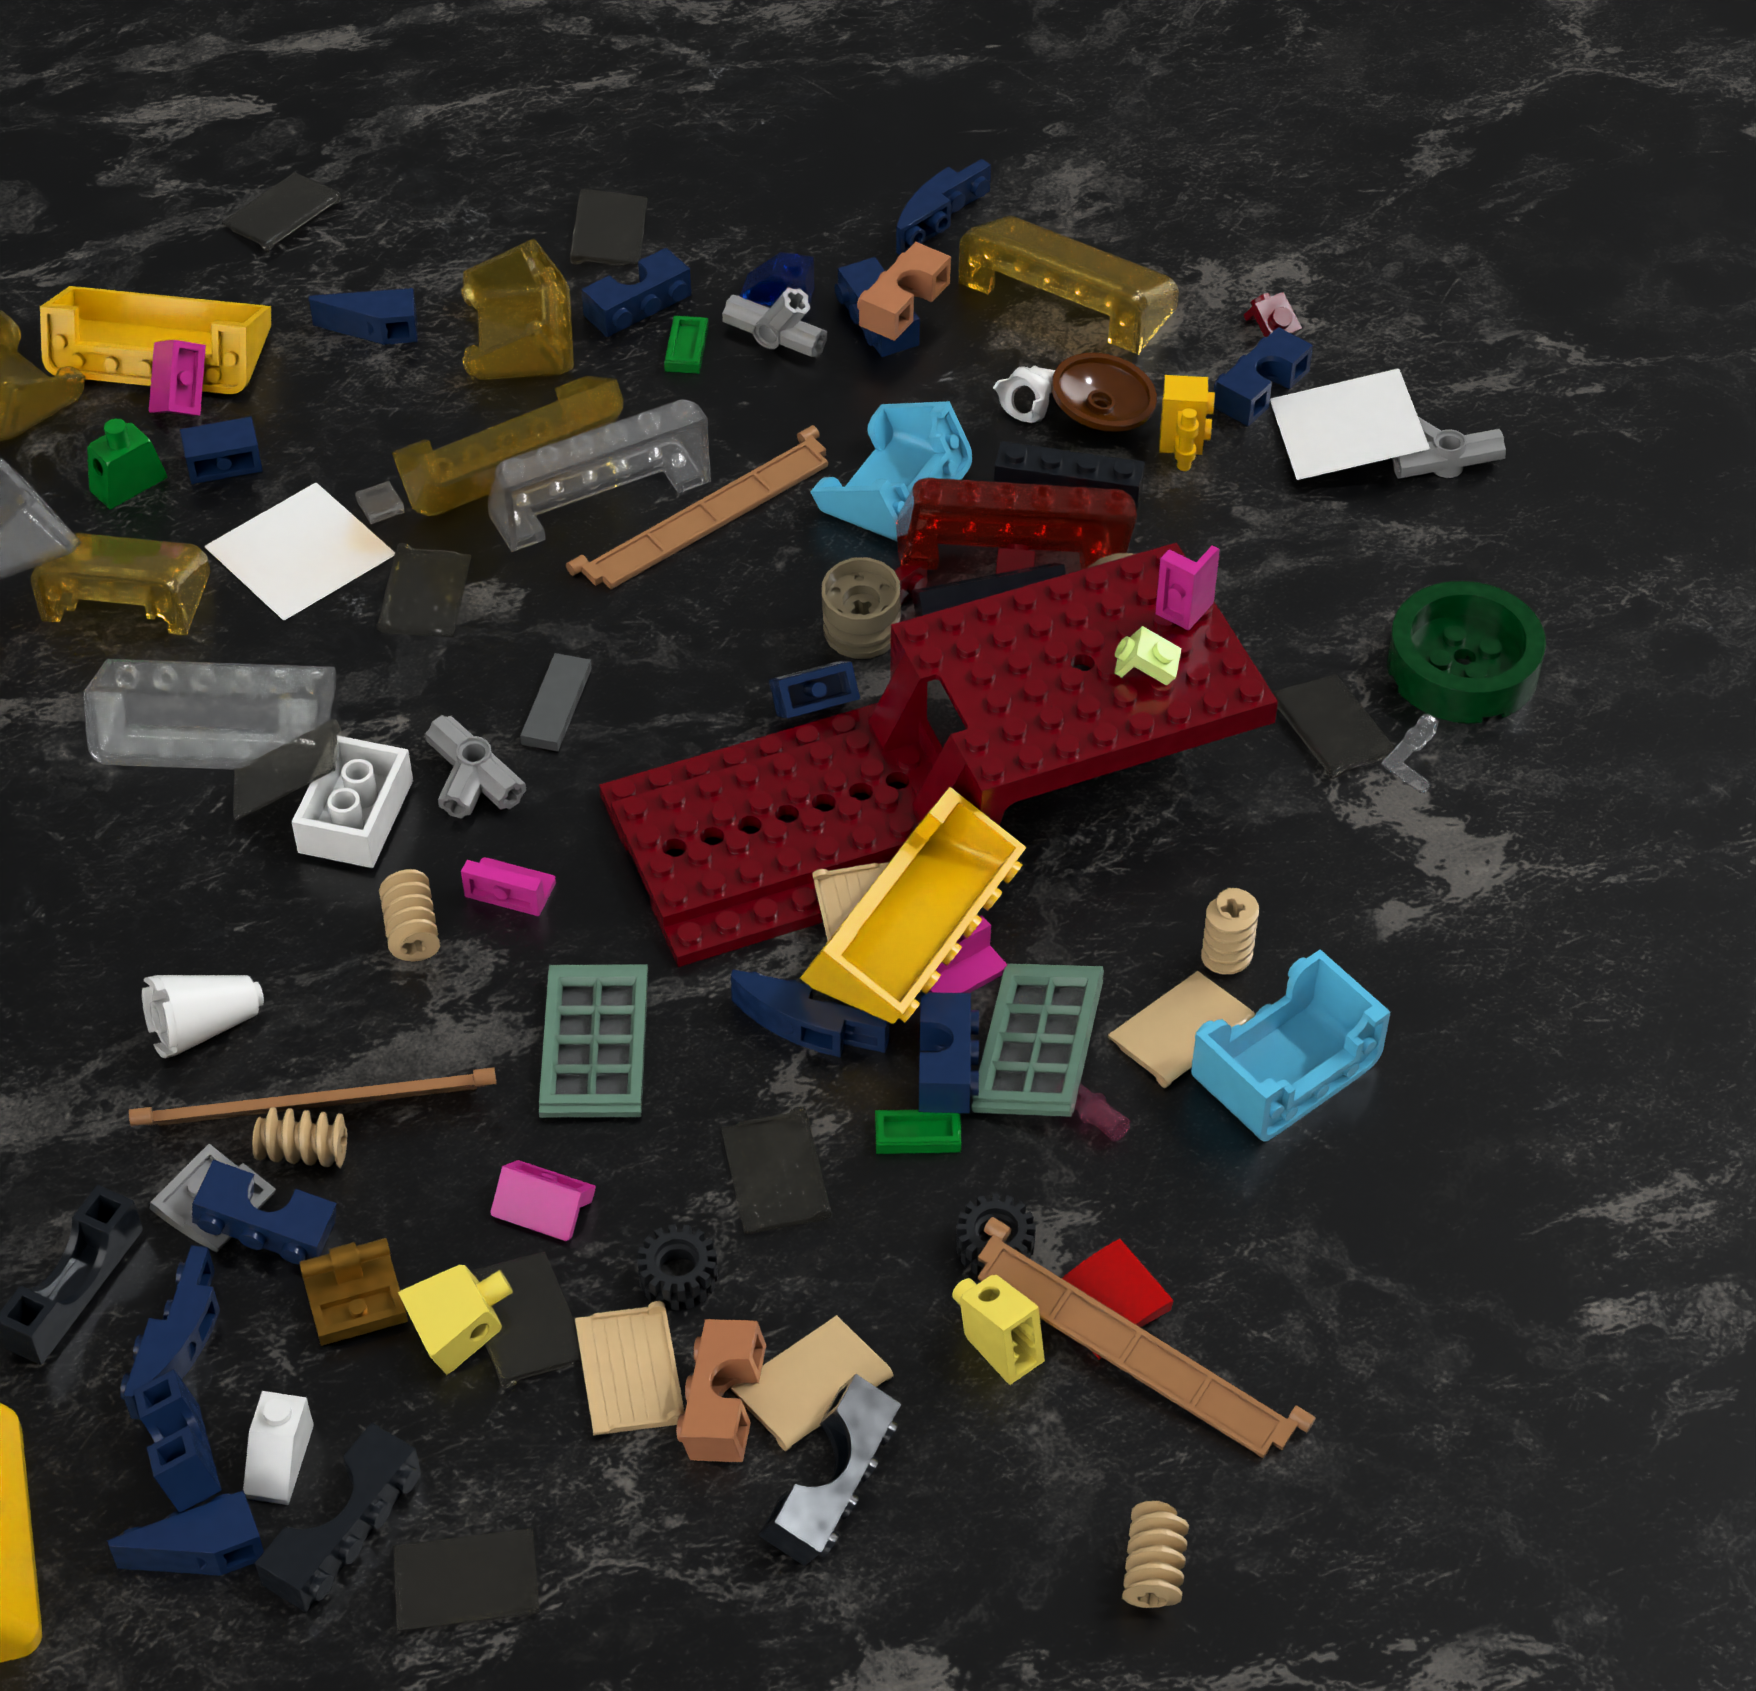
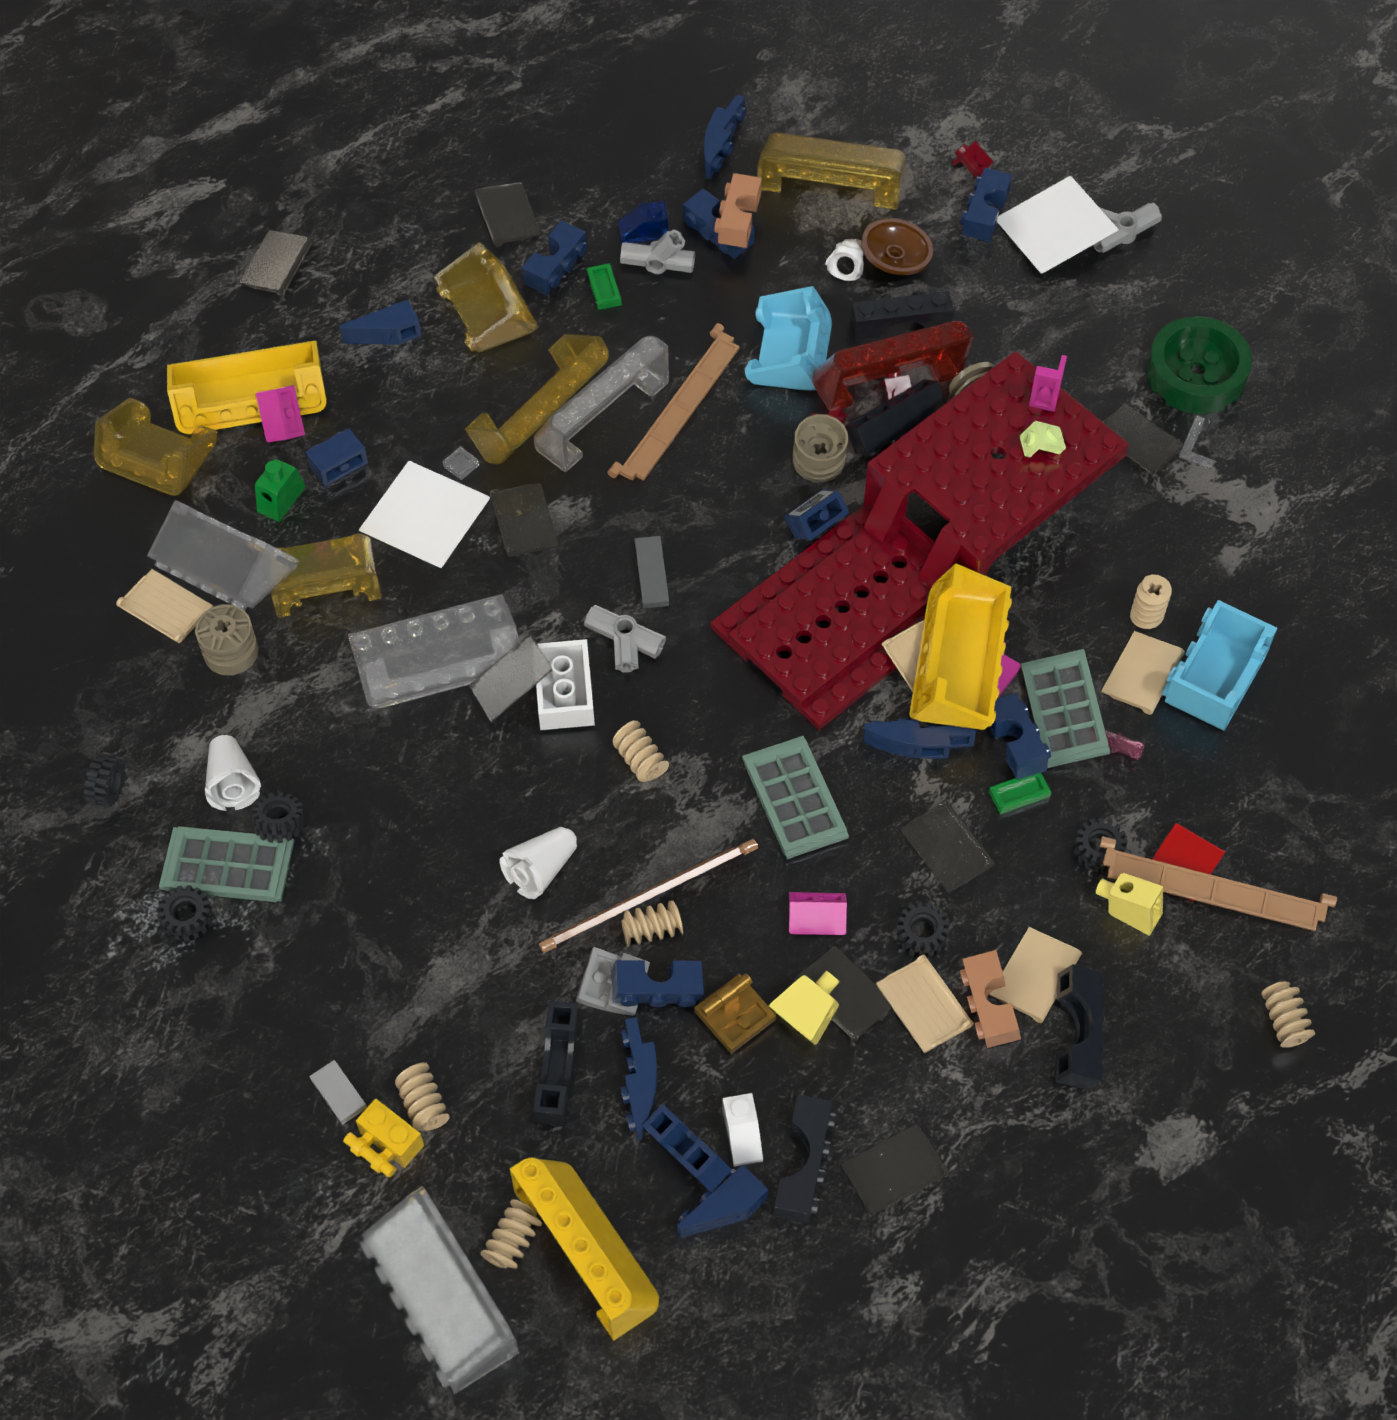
camera: 20 degrees left, 10 degrees up
(507, 885) = (687, 709): dark pink panel -> none
(1184, 418) = (956, 251): yellow brick -> none

